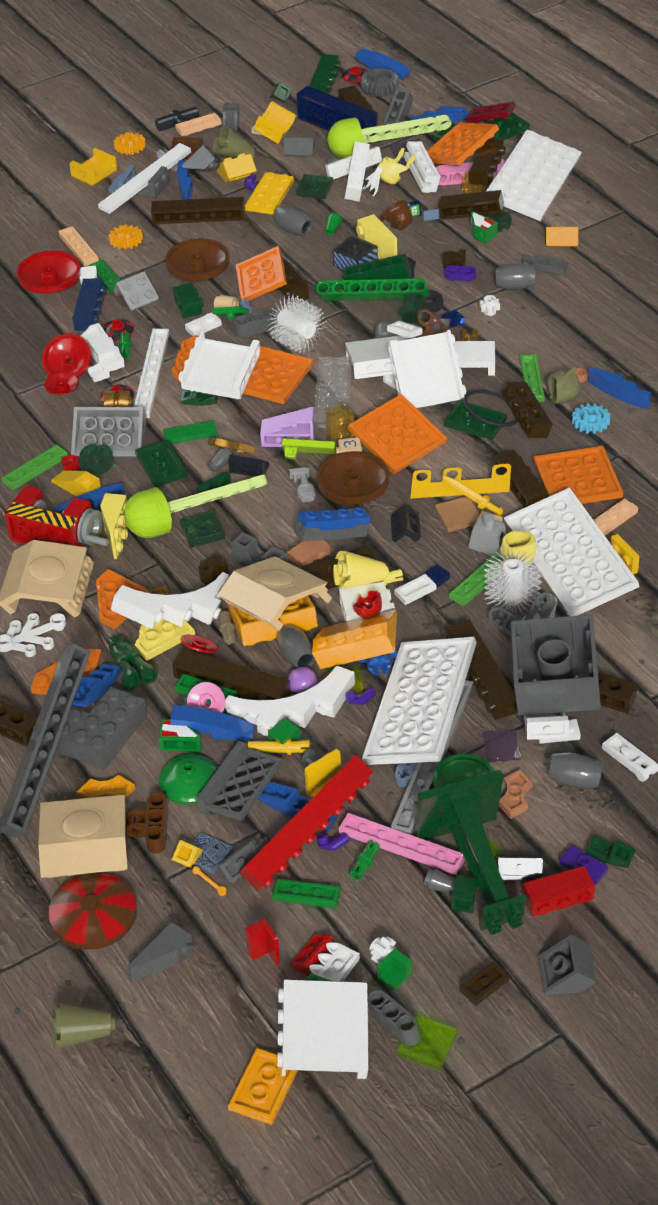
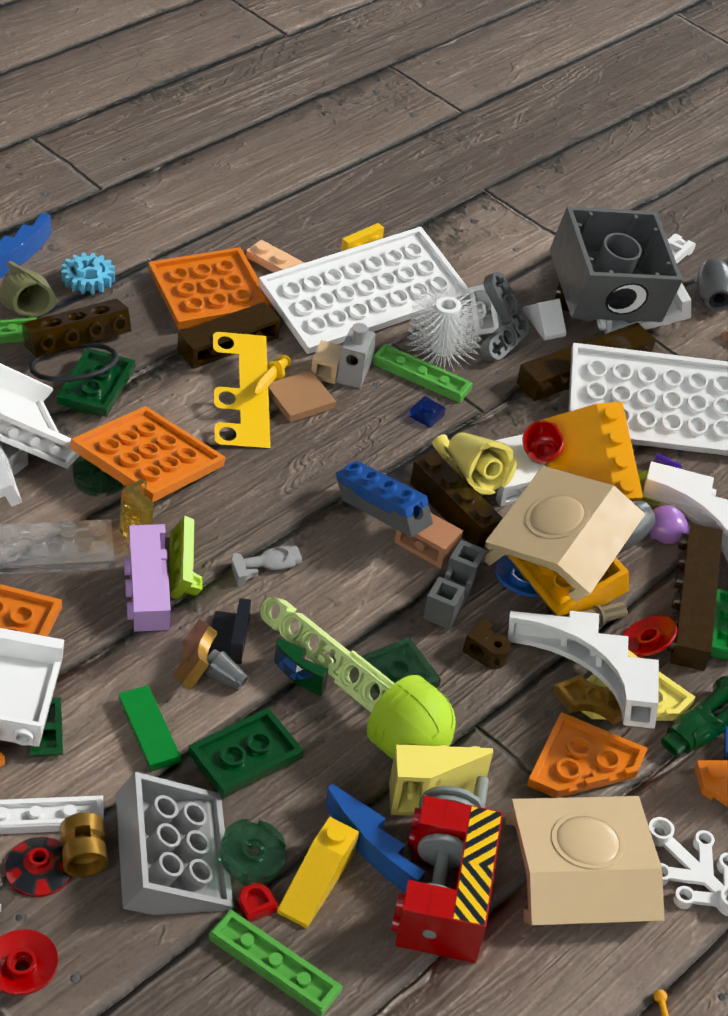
camera: 110 degrees left, 0 degrees up
(348, 445) = (187, 503): tan brick -> none
(353, 478) = (258, 495): reddish brown dish -> none
(405, 522) = (338, 445): black panel -> none
(415, 589) = (457, 421): white plate -> none
(501, 746) = (689, 346): clear purple piece -> none
(520, 541) = (388, 318): light yellow helmet -> none

